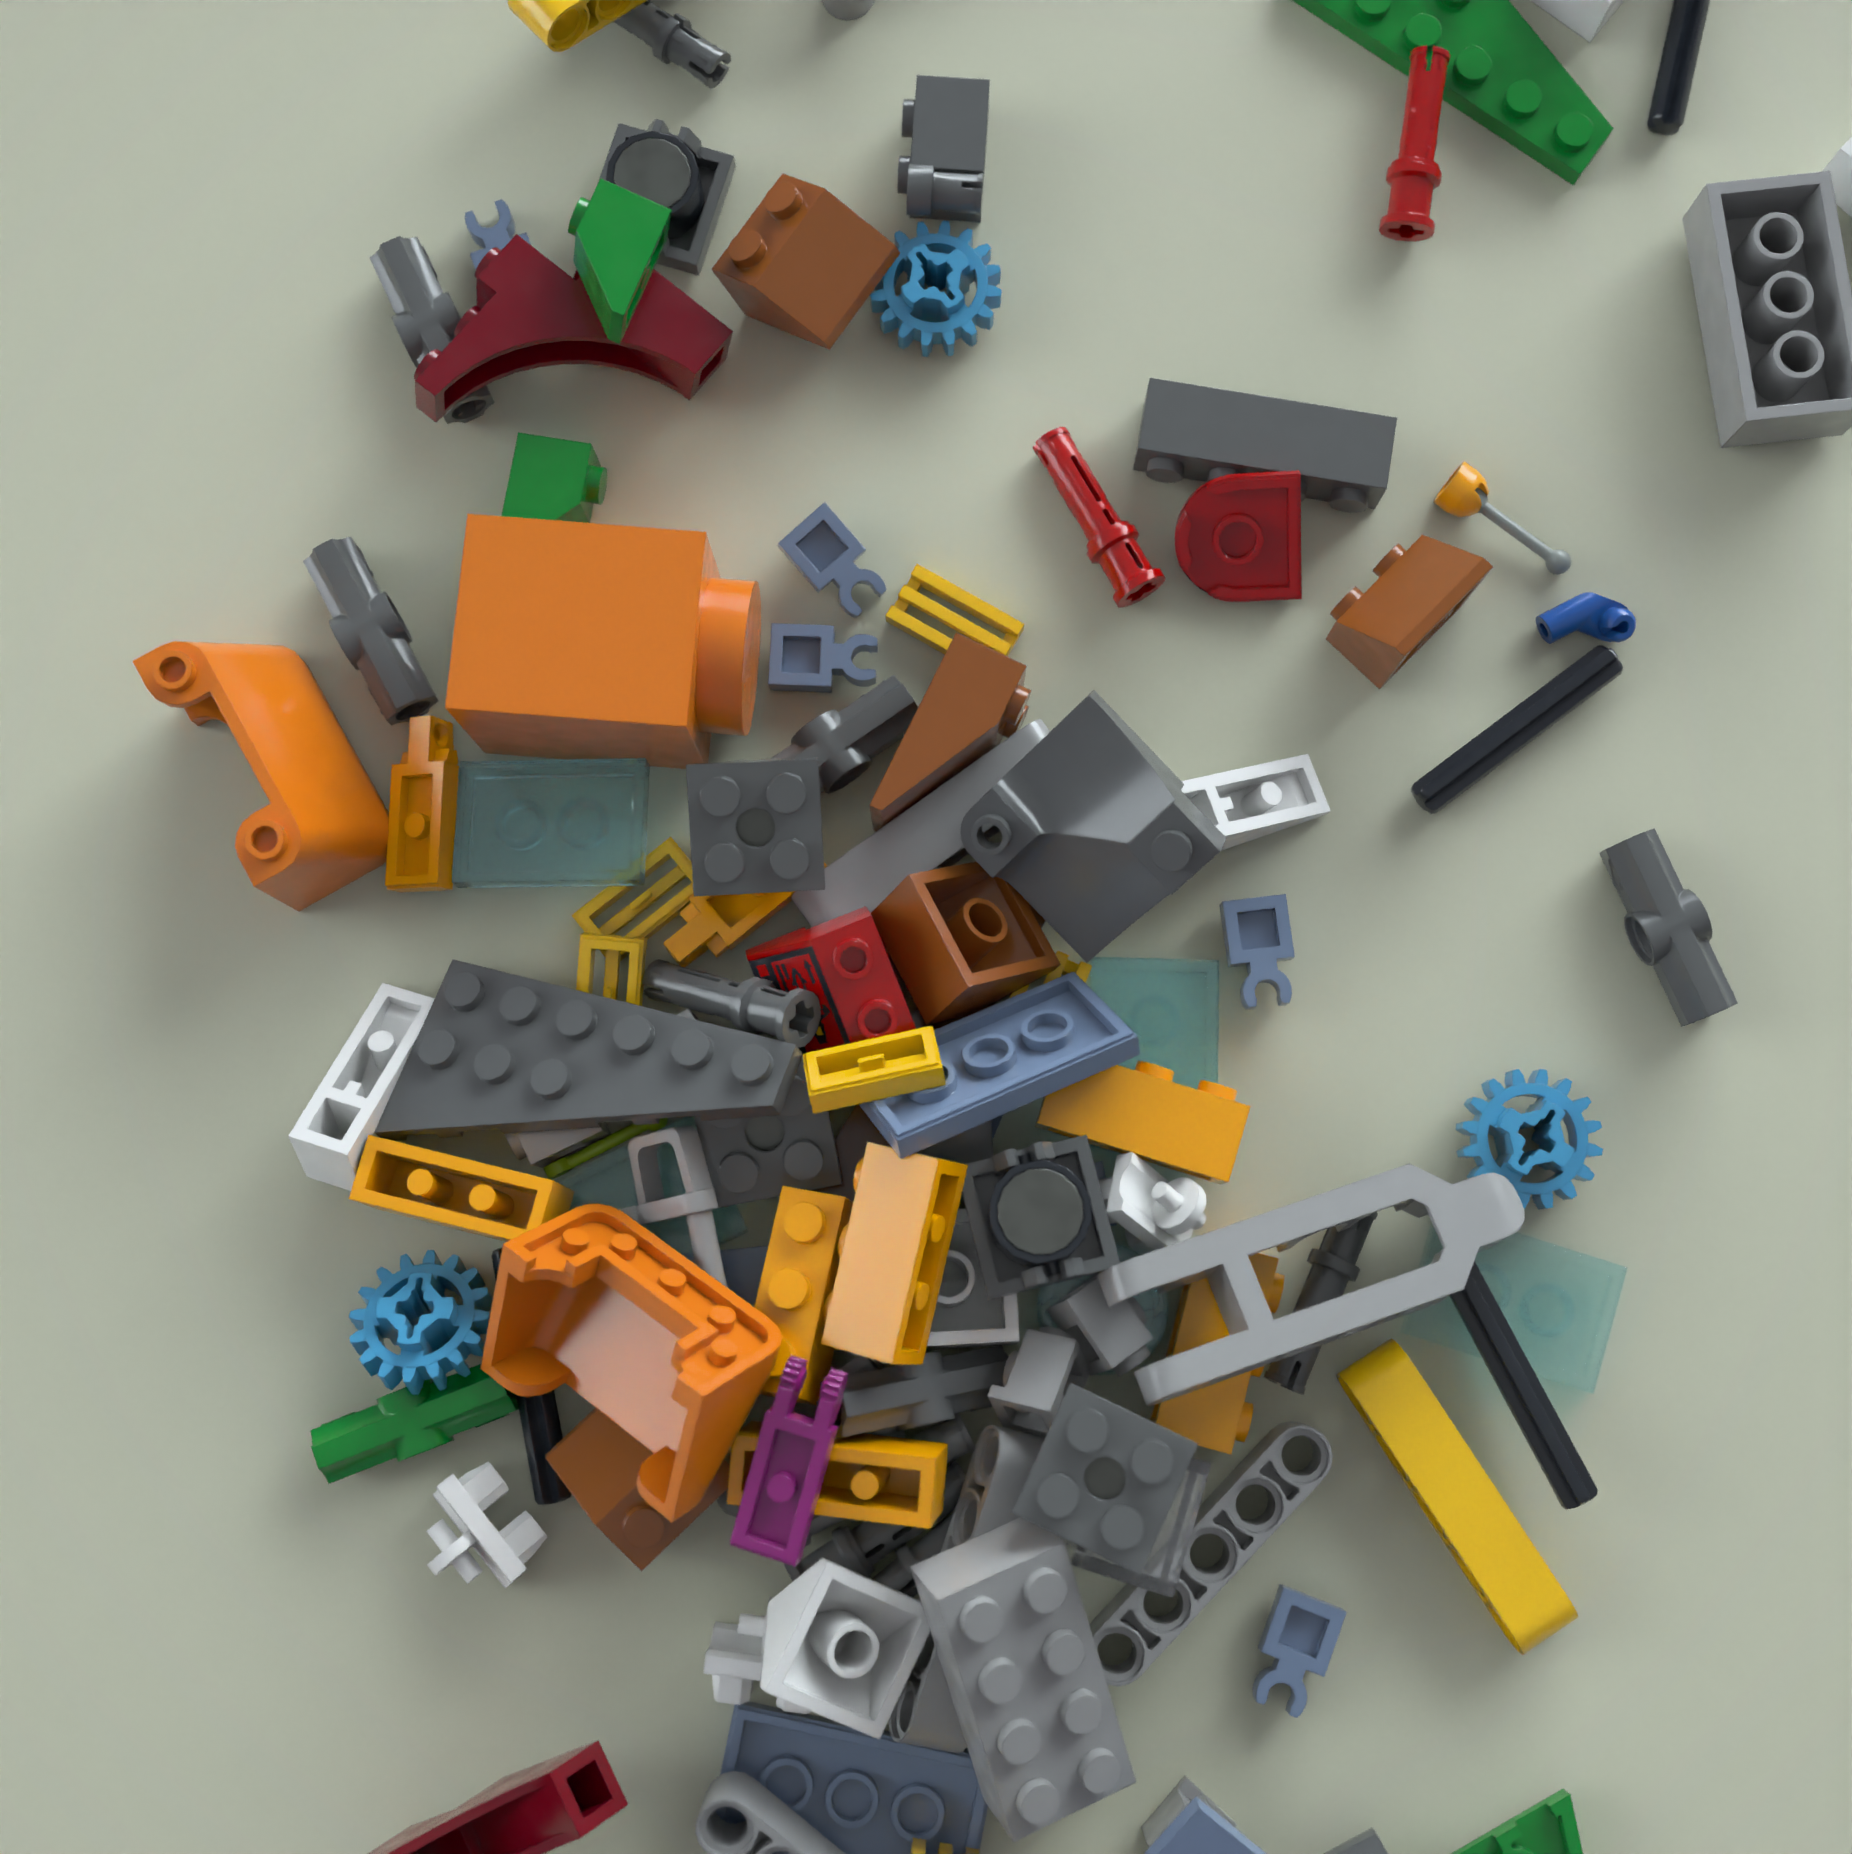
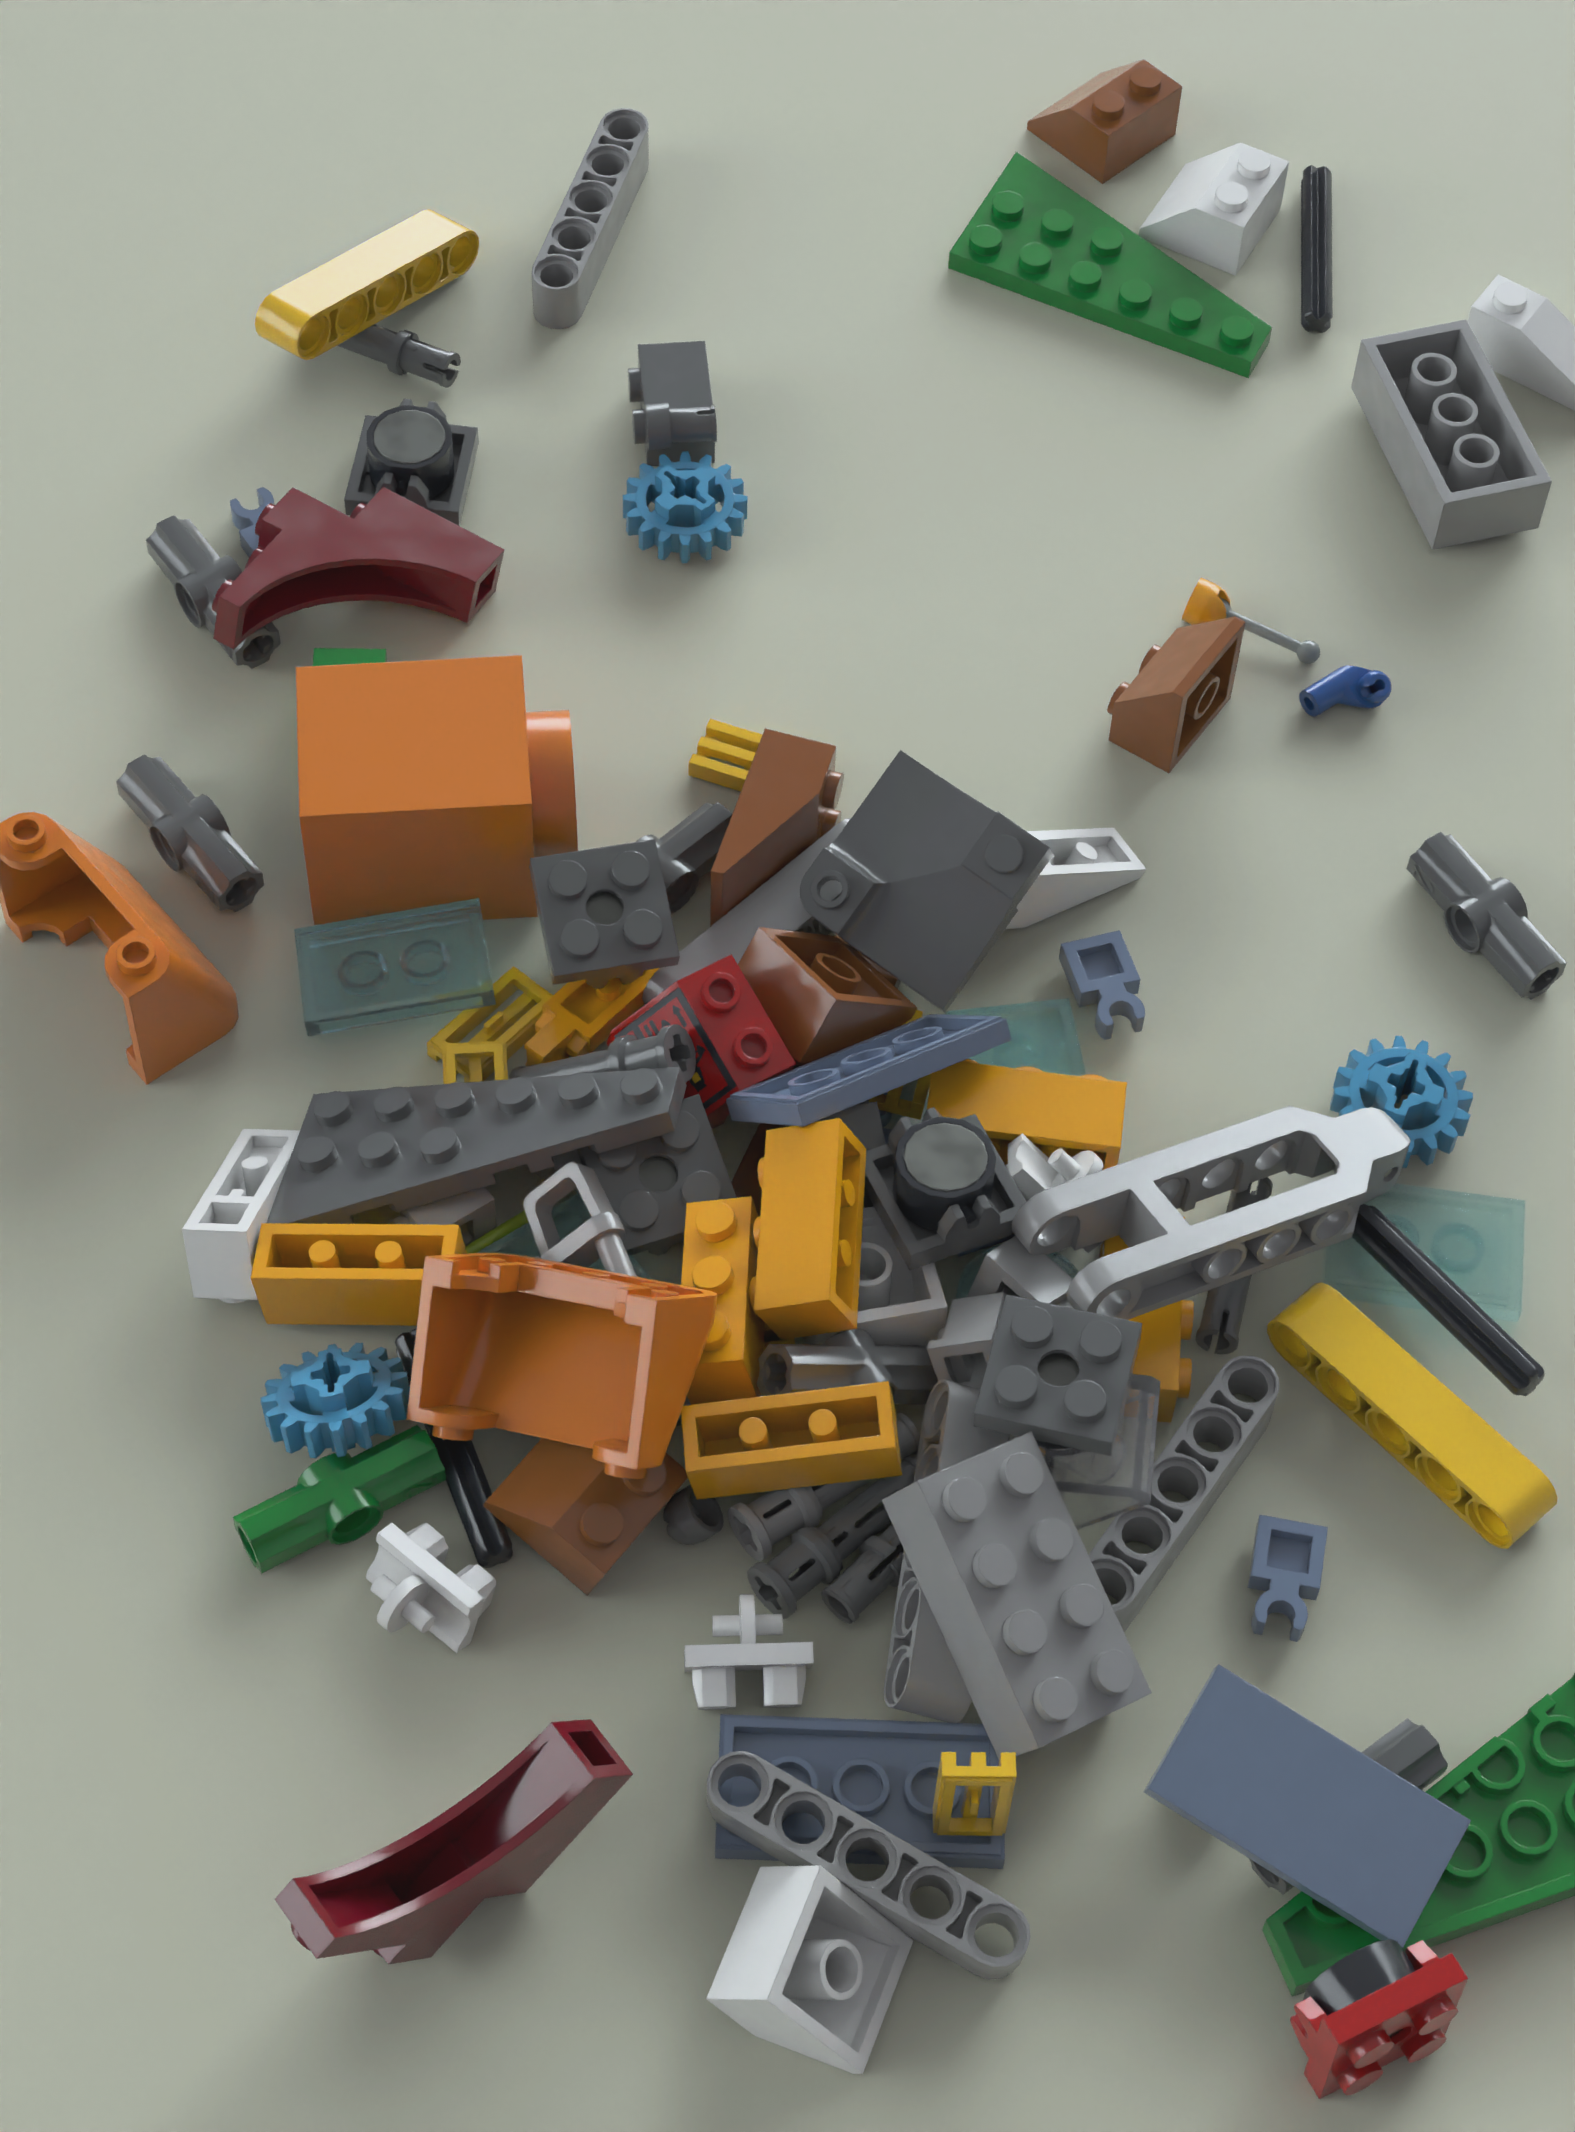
camera: 15 degrees left, 25 degrees down
(423, 809) = (265, 974): light orange hinge -> none
(617, 250) = (390, 485): green slope -> none
(788, 1468) = (744, 1410): magenta hinge -> none
(804, 262) = (559, 493): dark orange slope -> none
(807, 658) = (623, 805): sand blue plate -> none
(826, 554) = (626, 720): sand blue plate -> none
(842, 1646) = (829, 1593): white slope -> none
(873, 1069) = (758, 1077): yellow tile -> none
(1110, 540) = (888, 678): red pin -> none
(1222, 432) = (1015, 588): dark grey brick -> none
(1243, 537) = (1013, 658): red tile -> none
(1415, 172) = (1102, 373): red pin -> none
(1517, 729) = (1303, 782): black axle -> none

